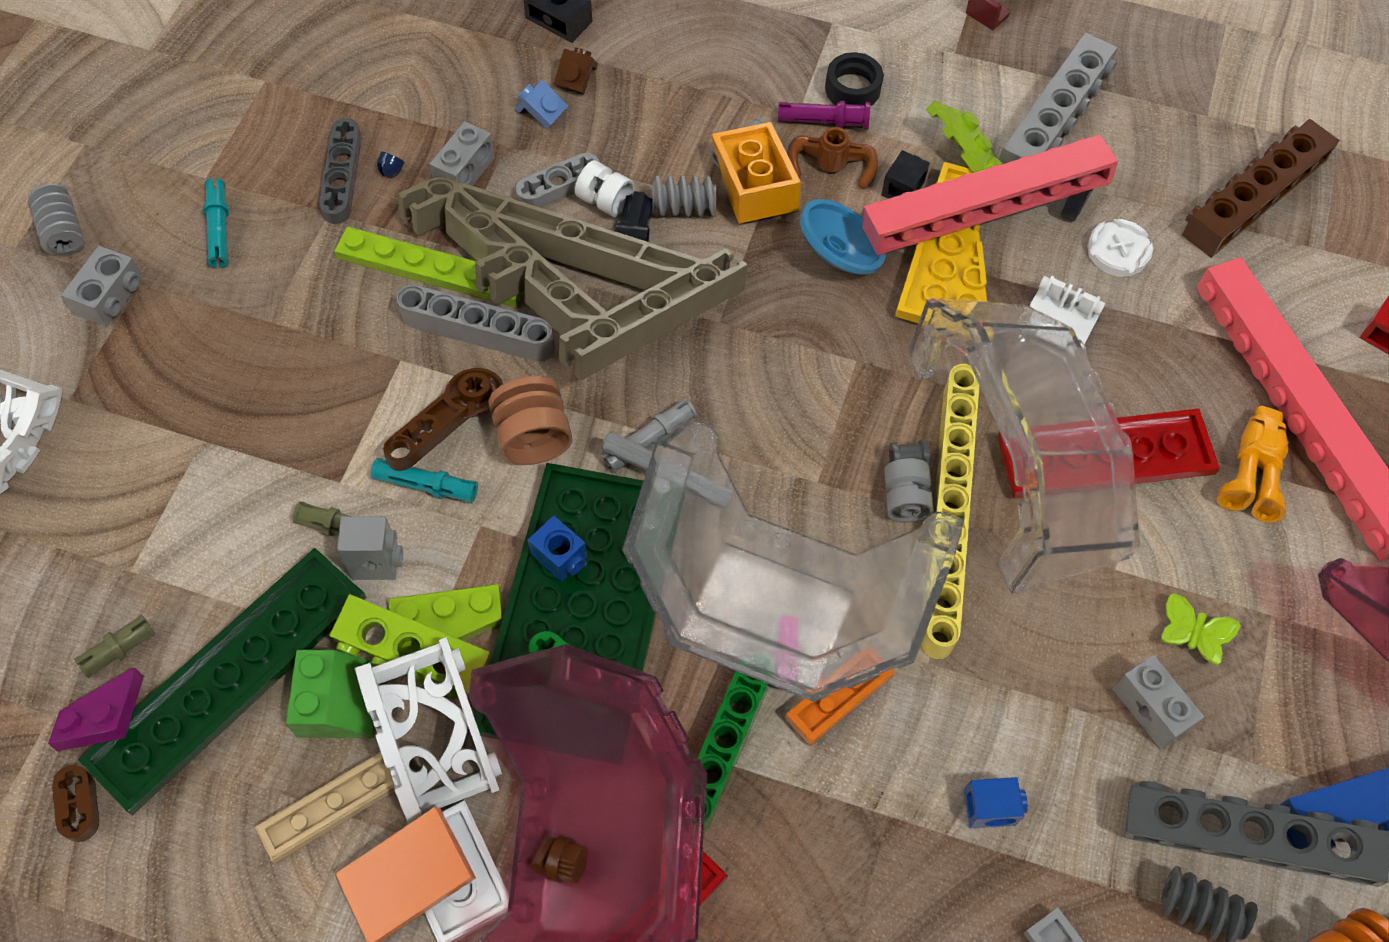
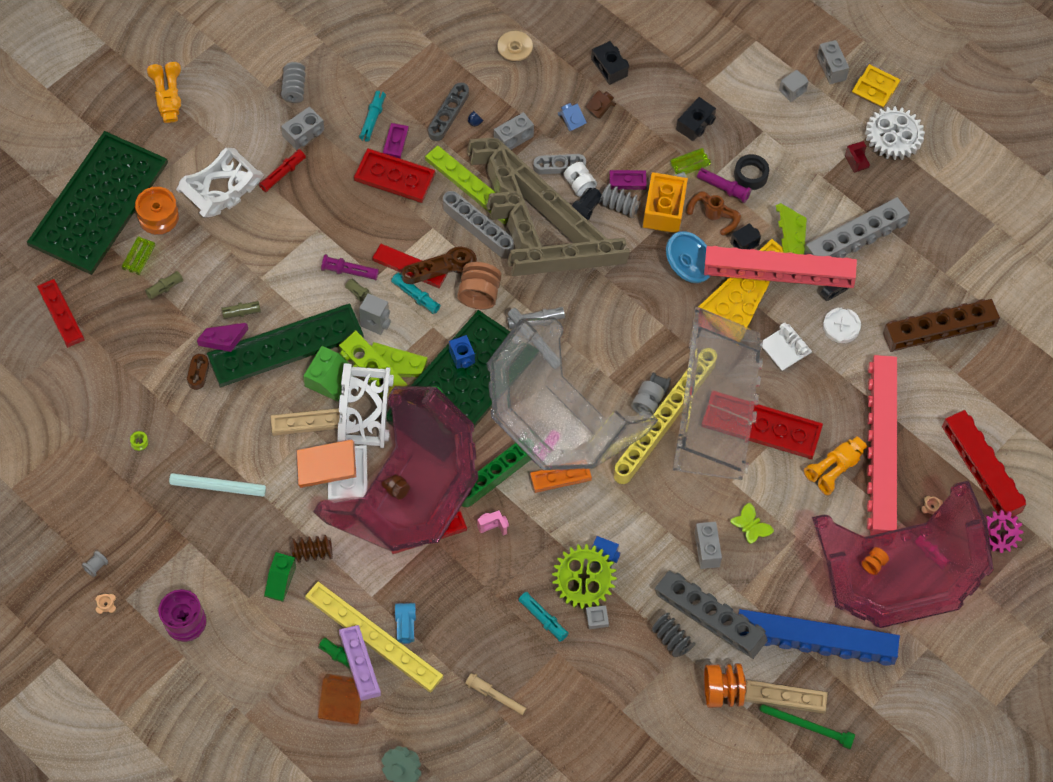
camera: 25 degrees right, 0 degrees up
(101, 357) = (287, 166): none -> red pin
(267, 485) = (339, 265): none -> magenta pin
(273, 247) = (396, 140): none -> magenta plate
(296, 301) = (394, 175): none -> red plate
(368, 439) = (398, 260): none -> red tile
(400, 37) = (515, 40): none -> tan dish
(678, 160) = (628, 179): none -> magenta plate
(730, 38) = (696, 119): none -> black brick
(750, 100) = (689, 159): none -> clear neon green tile
(761, 843) = (489, 521): none -> bright pink bracket
(1023, 856) = (566, 575): none -> lime gear

